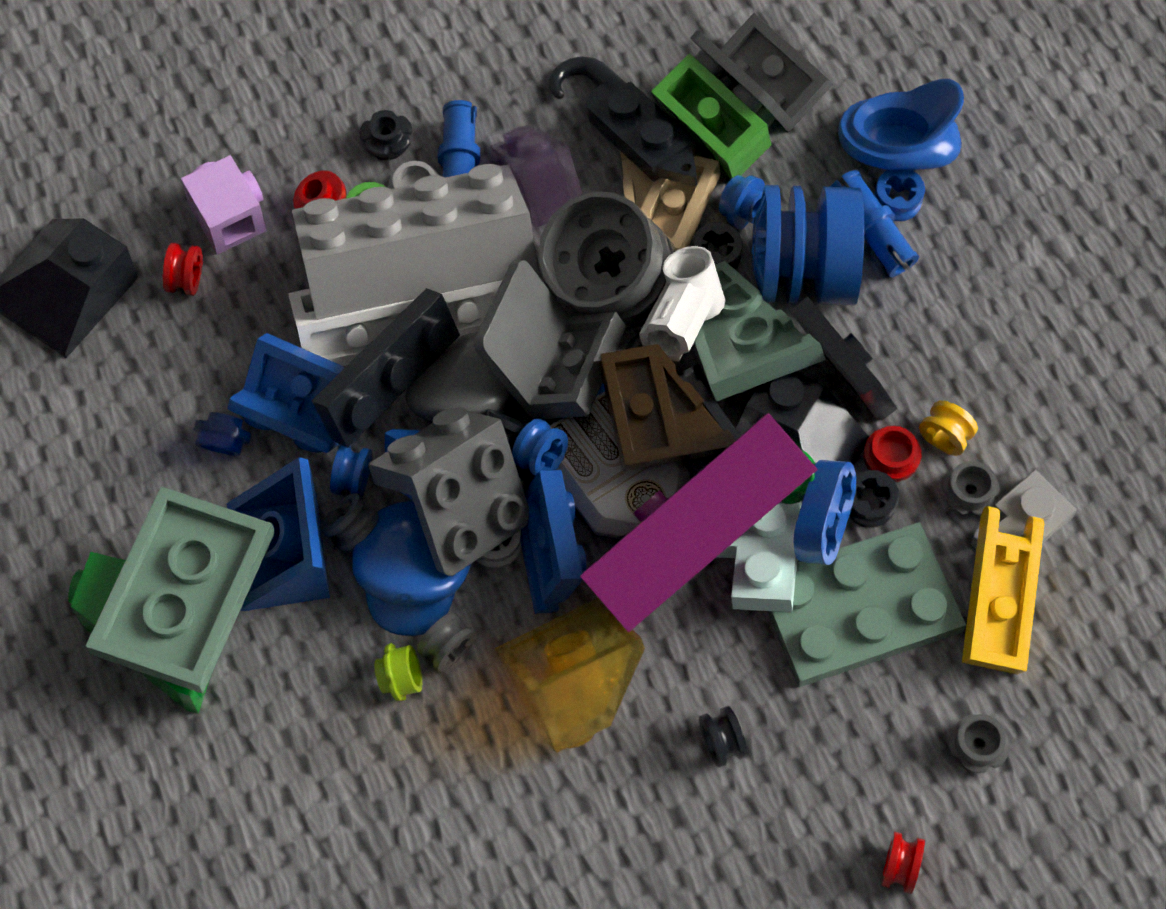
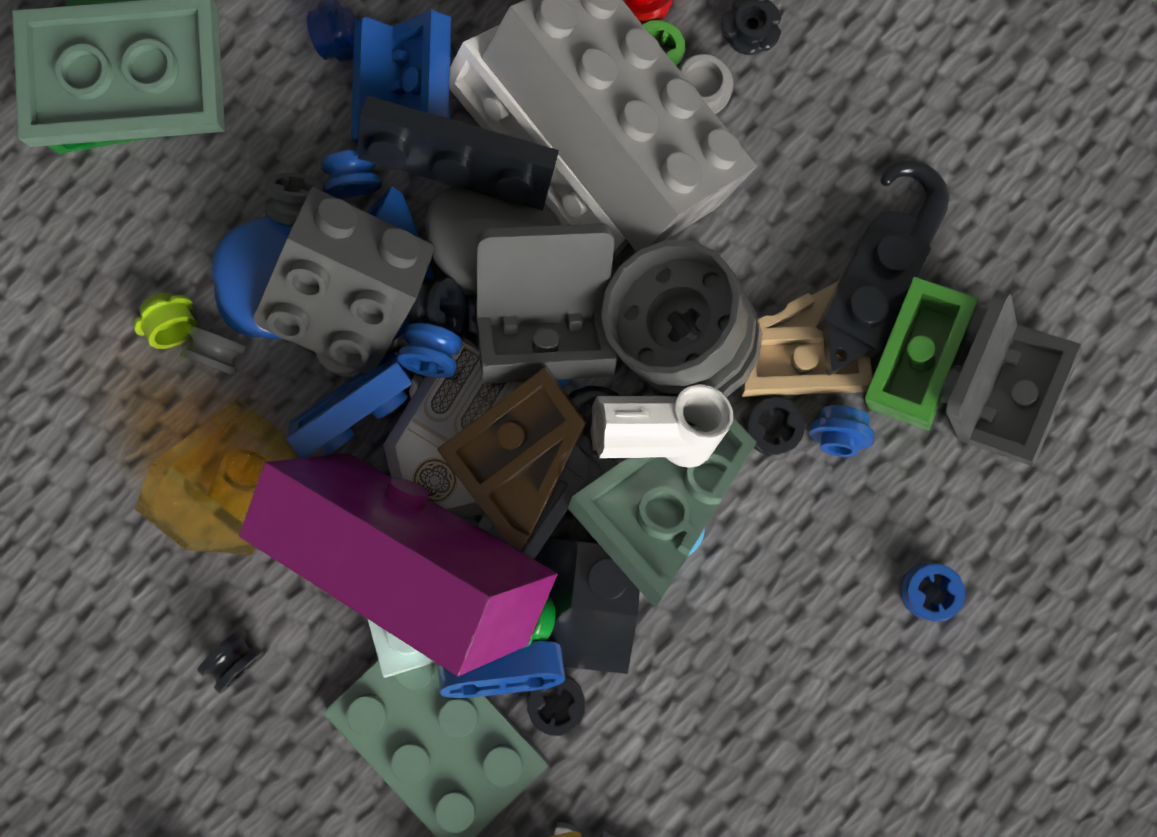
camera: 65 degrees right, 20 degrees up
(295, 558) = (260, 139): blue slope -> none
(458, 151) = (764, 108): blue pin -> none
(540, 169) = (769, 202): clear purple slope -> none
(810, 245) = (807, 529): blue wheel -> none
(846, 357) = (681, 621): black plate -> none
(880, 229) = (880, 579): blue pin -> none
(893, 452) = (616, 706): red plate -> none
(905, 128) = (1013, 568): blue piece -> none
(948, 427) = (668, 755): yellow bush -> none
(975, 475) = (617, 819): dark grey plate -> none

